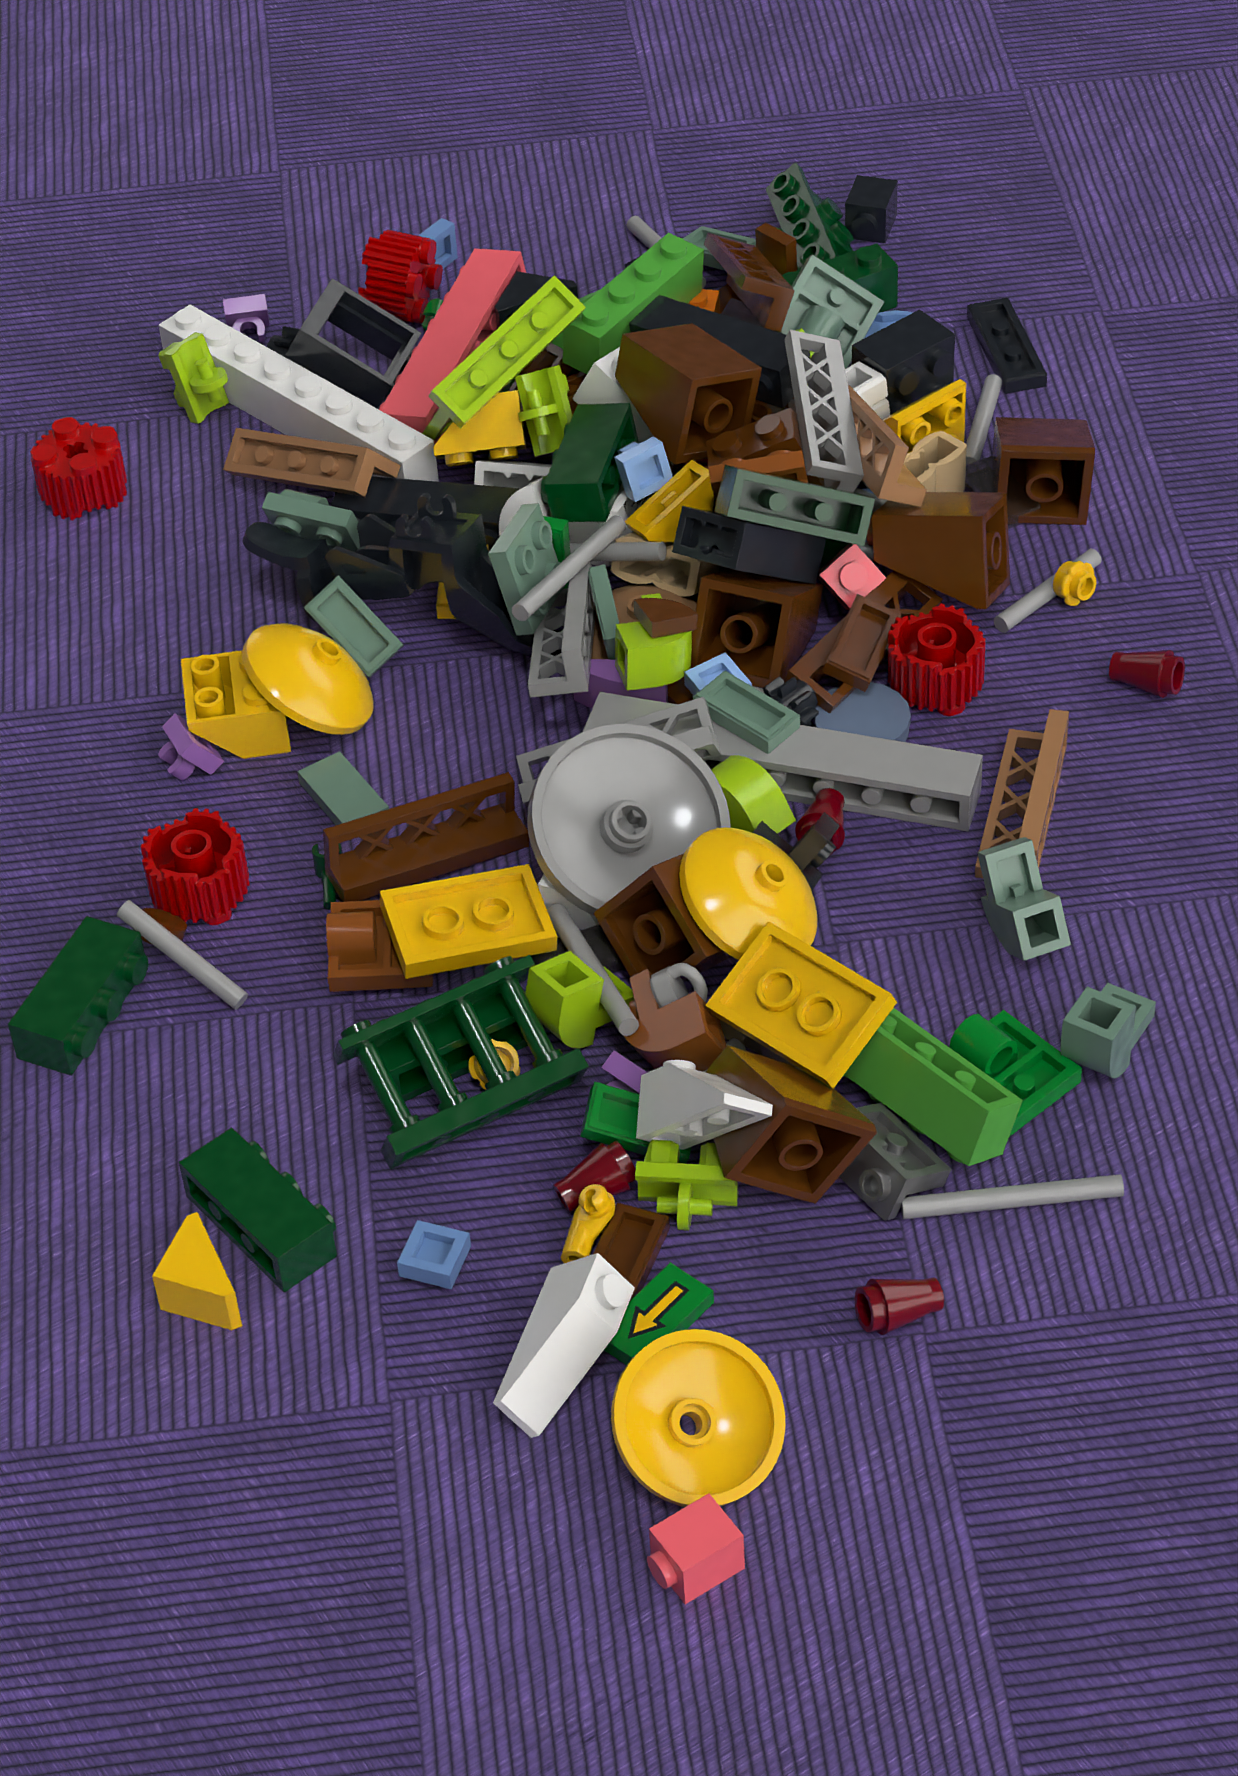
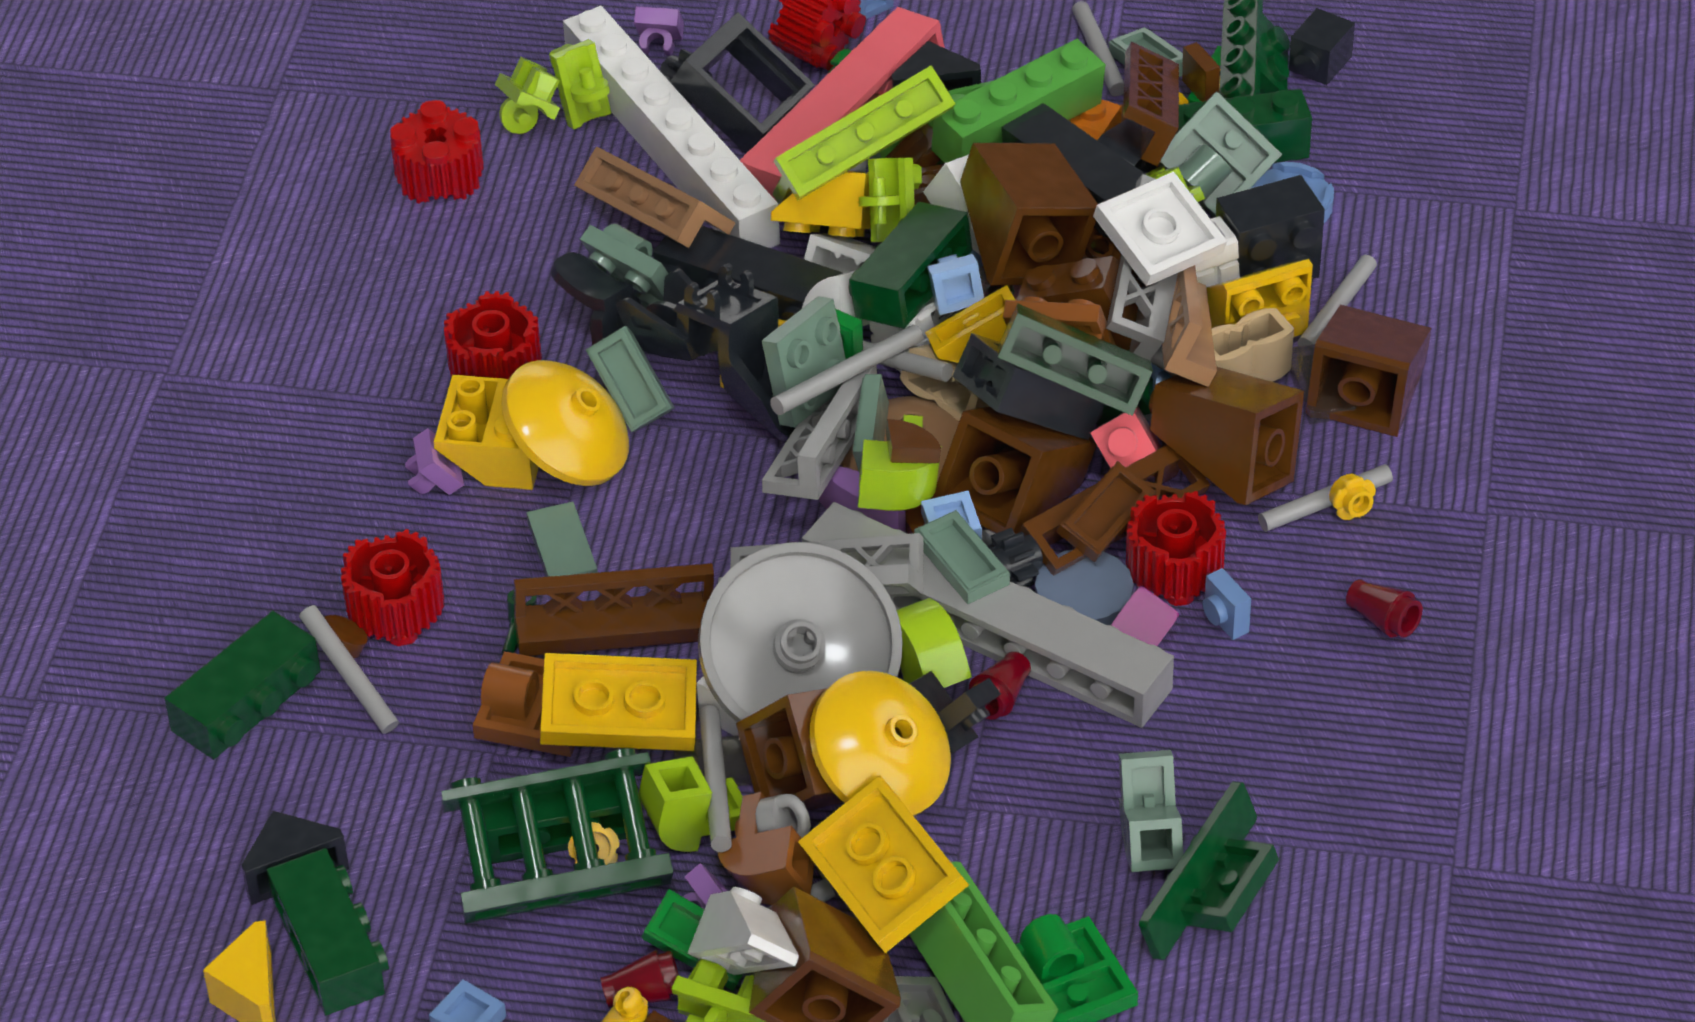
camera: 15 degrees right, 0 degrees up
(149, 394) = (528, 91): none -> lime hips
(184, 1131) = (283, 840): none -> black slope
(202, 619) = (491, 337): none -> red brick
(828, 372) = (1160, 228): none -> white plate
(935, 726) = (1145, 617): none -> magenta slope
(1004, 700) = (1227, 604): none -> medium blue plate
(1006, 345) = (1399, 226): black tile -> none
(1042, 775) = (1221, 710): medium nougat fence -> none
(1105, 940) = (1213, 877): none -> dark green bracket
(1105, 1028) = (1175, 960): sand green brick -> none

